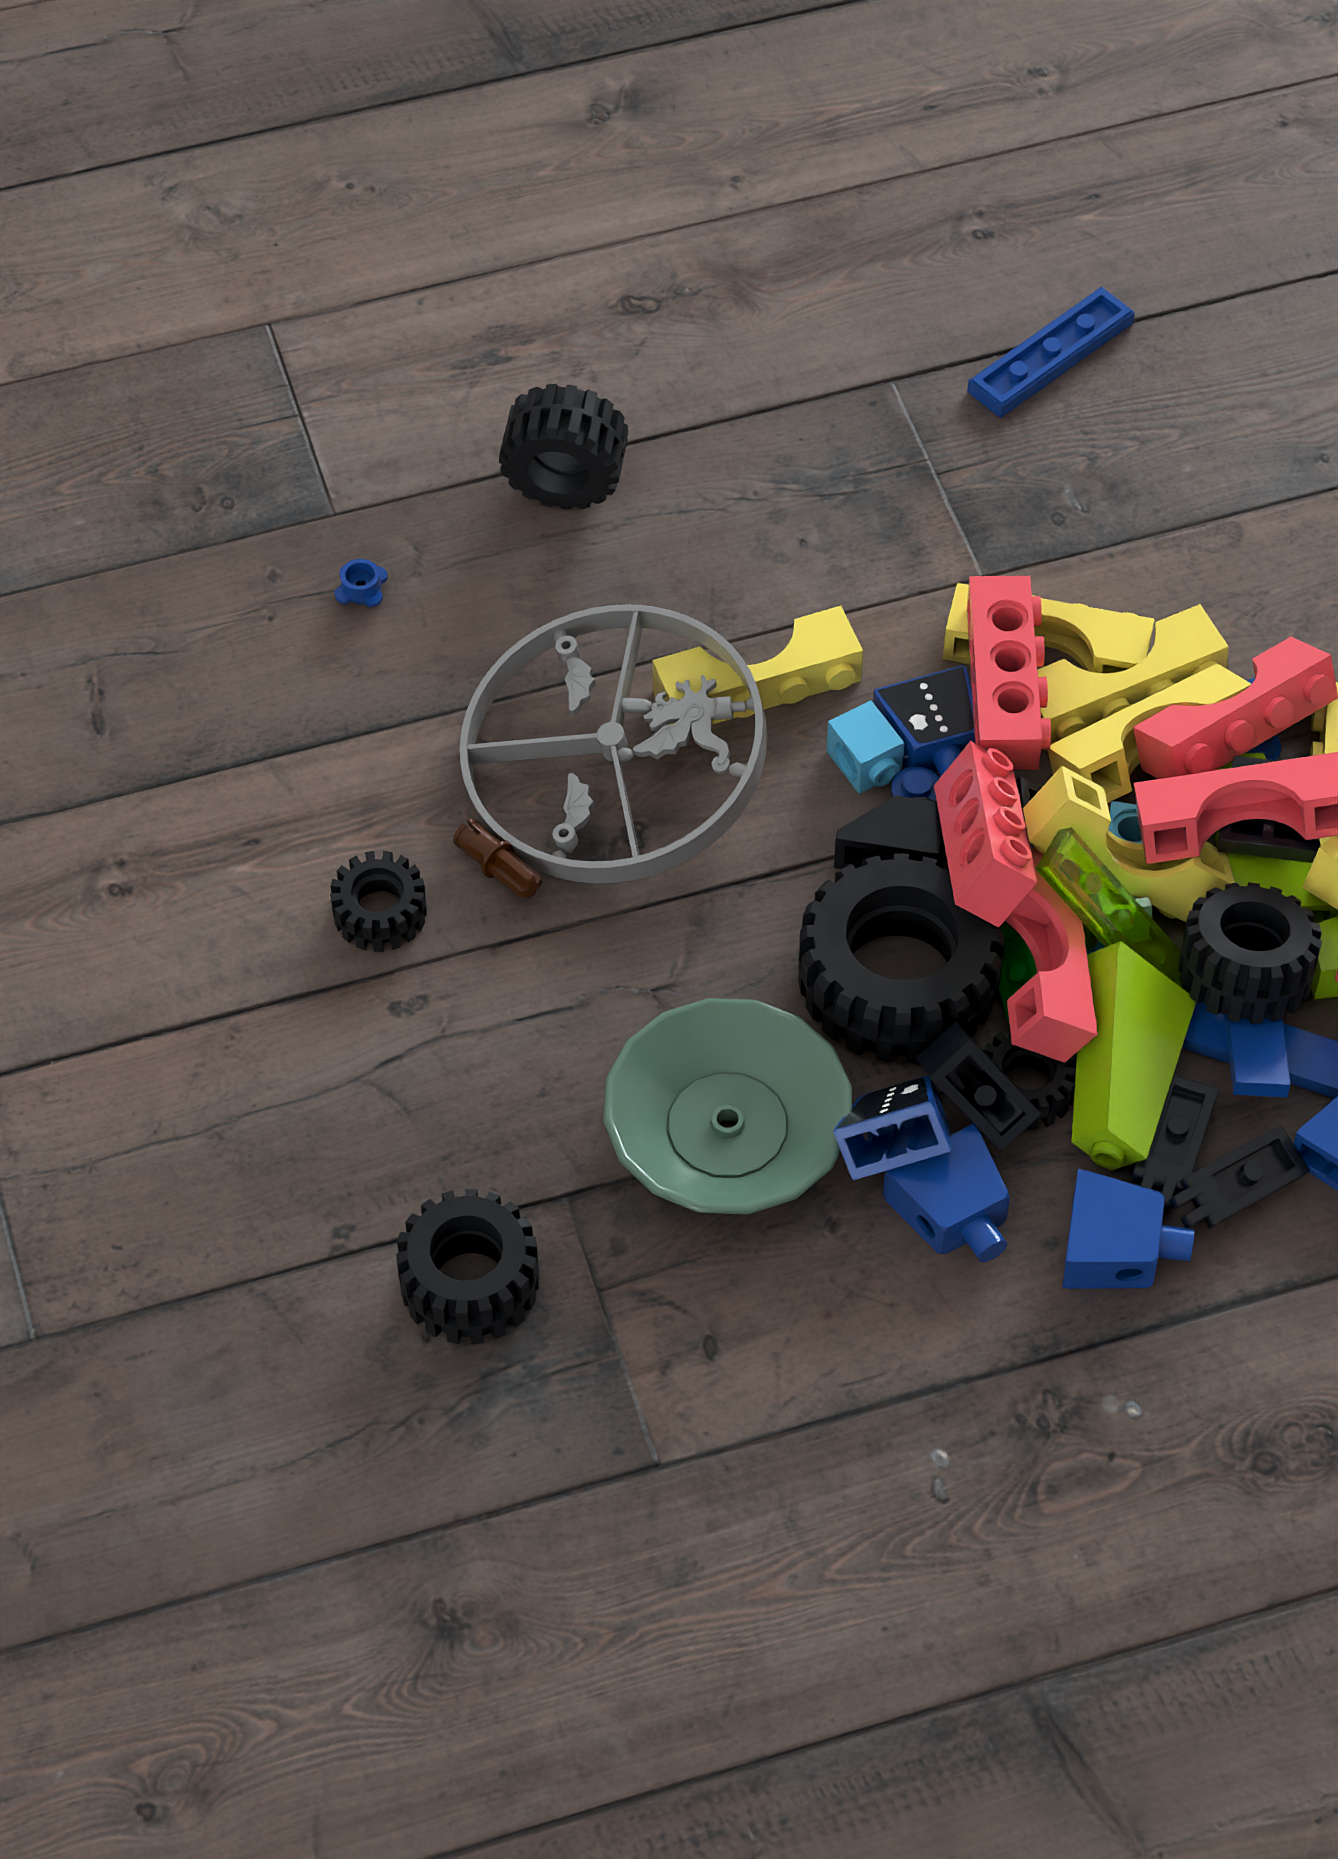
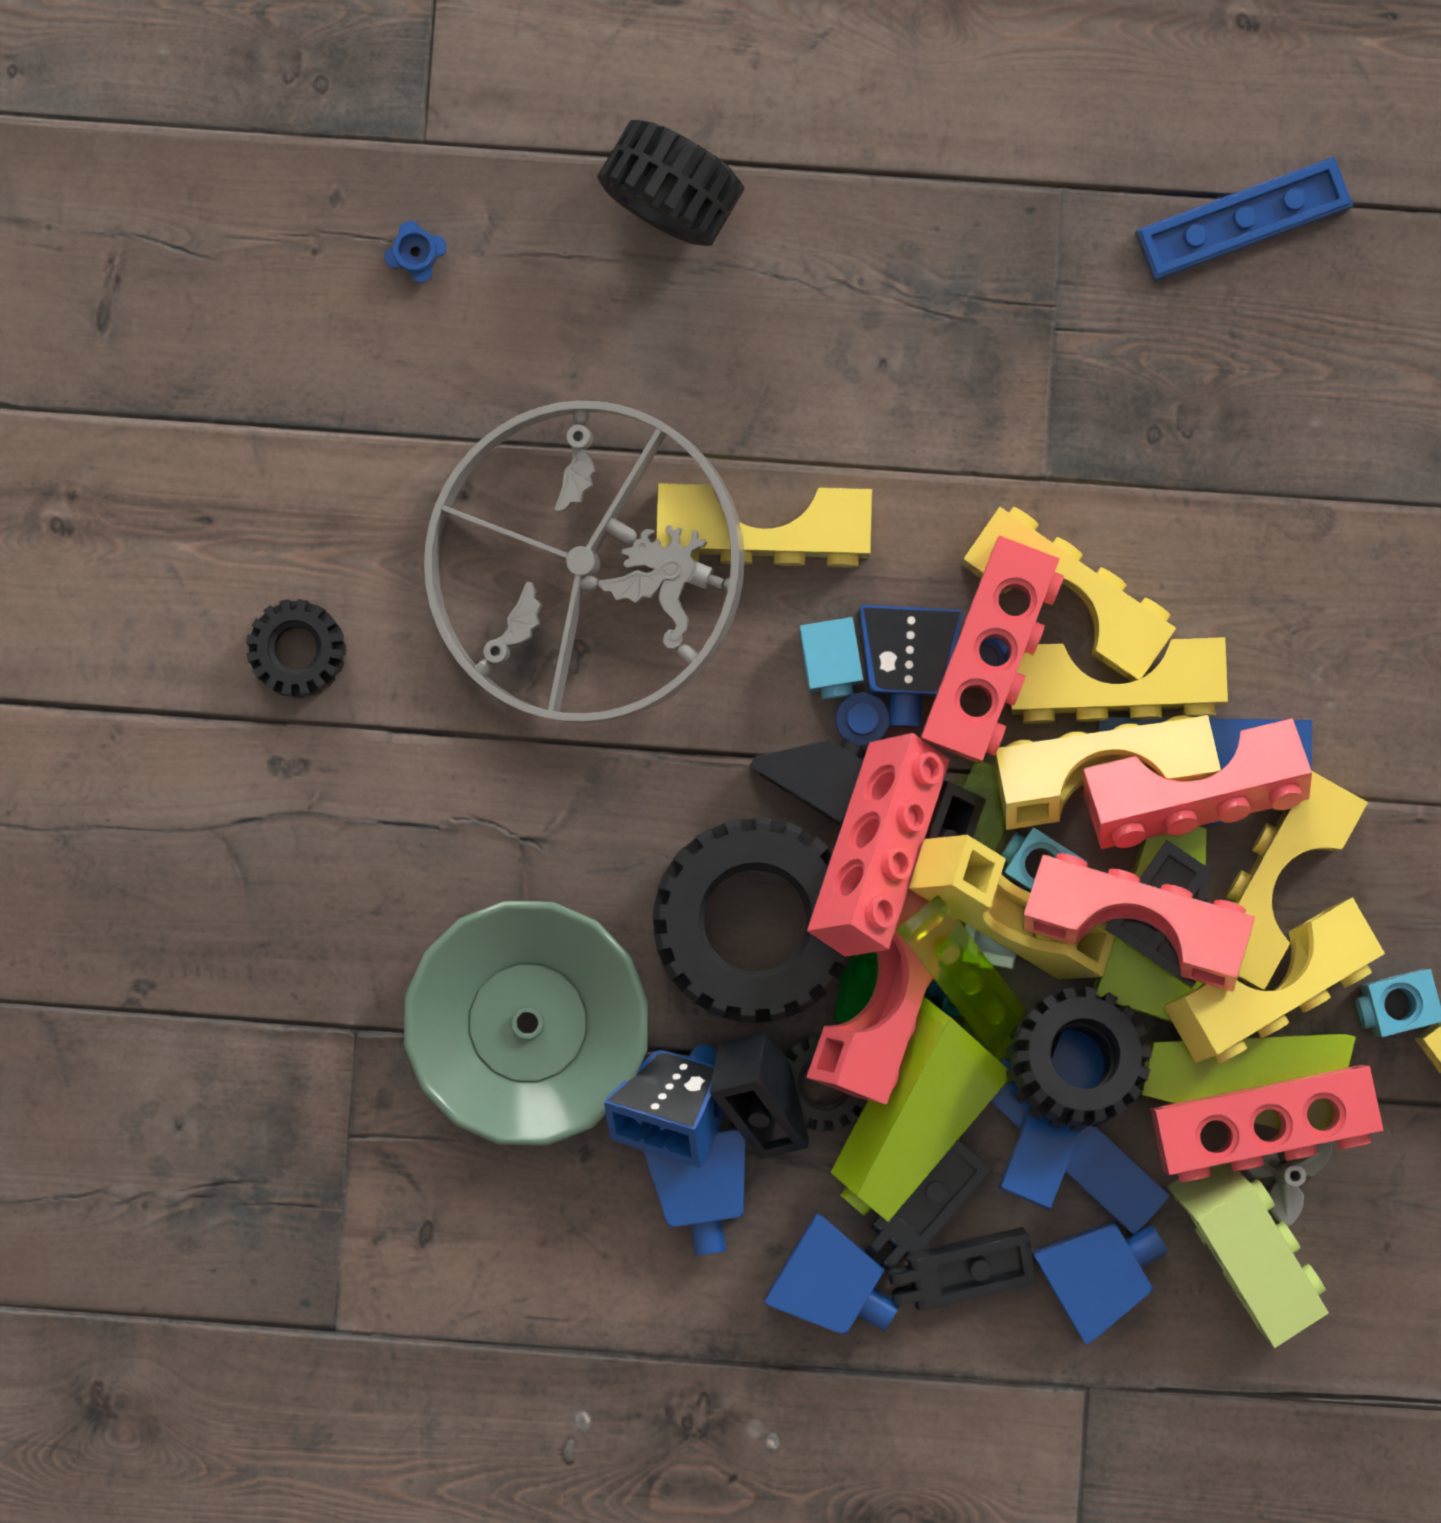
camera: 20 degrees right, 30 degrees up
(459, 1228) = (185, 1087): black tyre -> none
(497, 859) = (427, 646): reddish brown axle -> none

